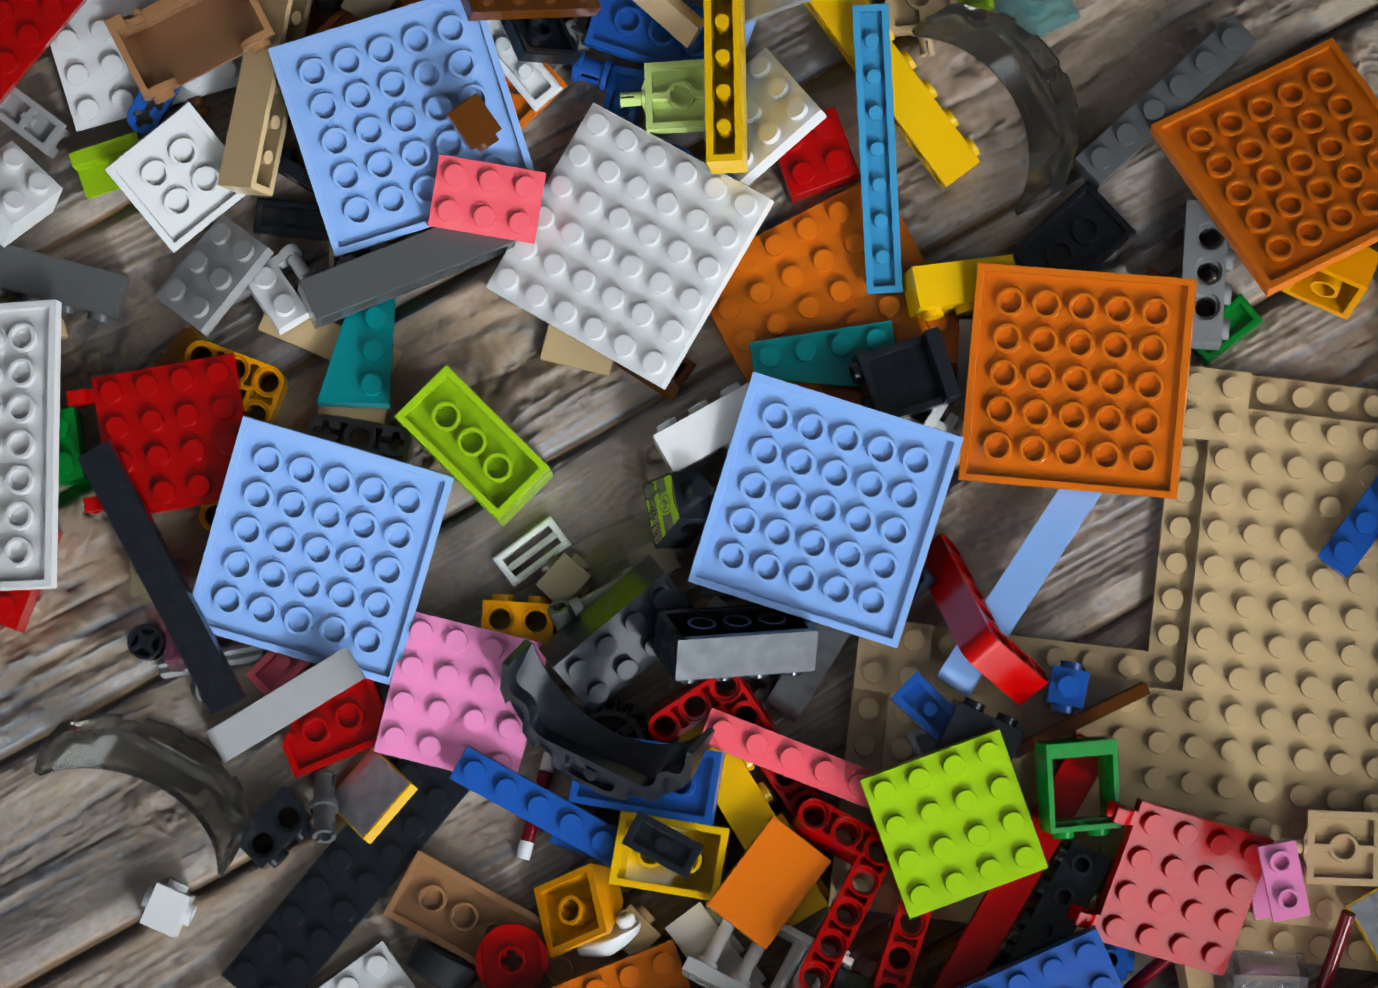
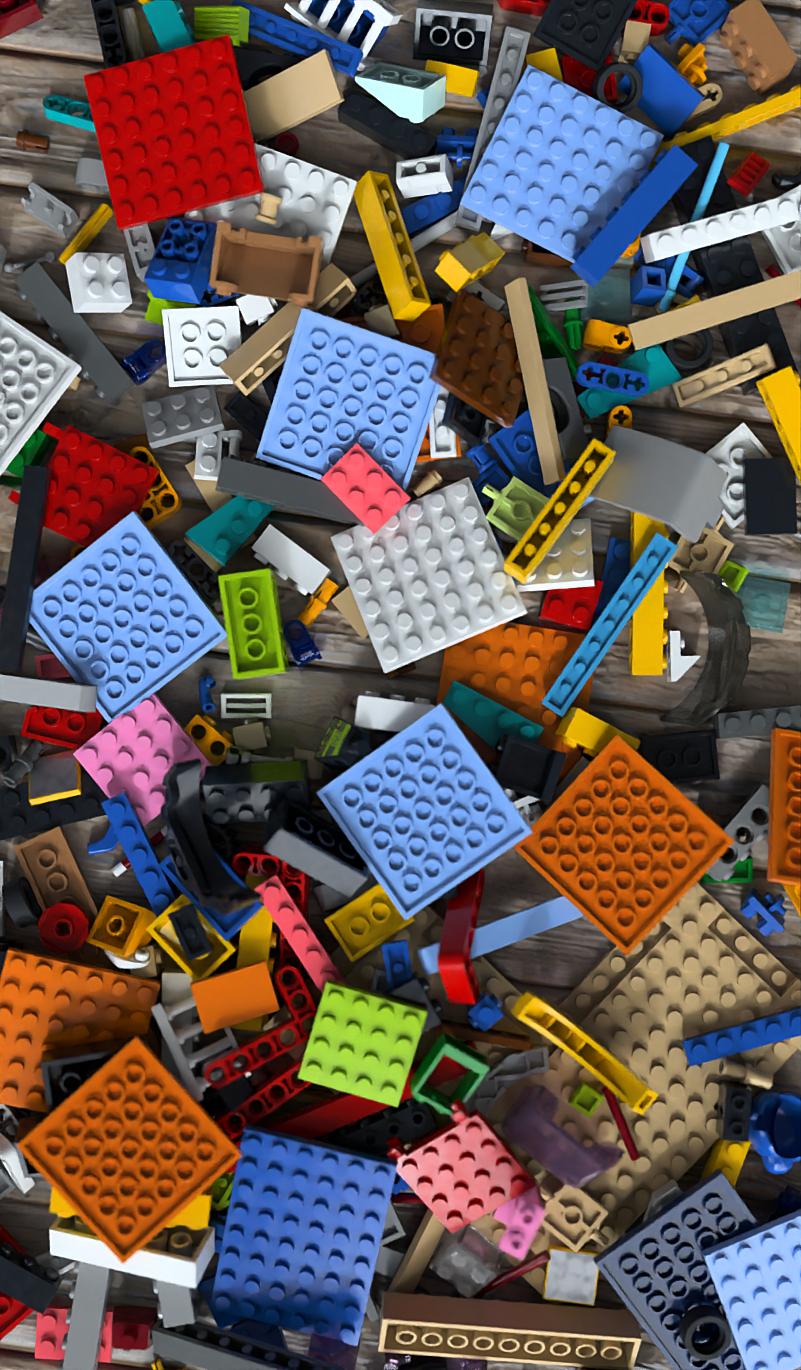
camera: 30 degrees right, 5 degrees up
(88, 97) = (182, 260): none -> blue slope
(123, 245) = (144, 362): none -> clear blue piece
(212, 90) = (256, 309): none -> white brick
(460, 347) = (290, 560): none -> white brick
(474, 123) = (388, 440): reddish brown piece -> none
(475, 574) = (204, 693): none -> blue arm
(489, 826) = (105, 844): none -> blue arm
(526, 372) = (317, 602): none -> light orange pin
(544, 433) = (301, 645): none -> clear blue piece
(552, 146) = (427, 484): none -> tan pin
(839, 89) = (614, 572): none -> blue plate
(856, 688) = (366, 922): none -> yellow tile
(987, 137) = (677, 664): none -> white slope
(1147, 740) = (506, 1072): none -> light grey tile
(1210, 642) = (584, 1048): none -> yellow arch
(1256, 776) = (533, 1130): none -> clear purple windscreen
(1259, 705) = (586, 1099): none -> lime tile
(1316, 346) = (770, 911): none -> blue hips
(1319, 702) = (621, 1123): none -> dark red bar

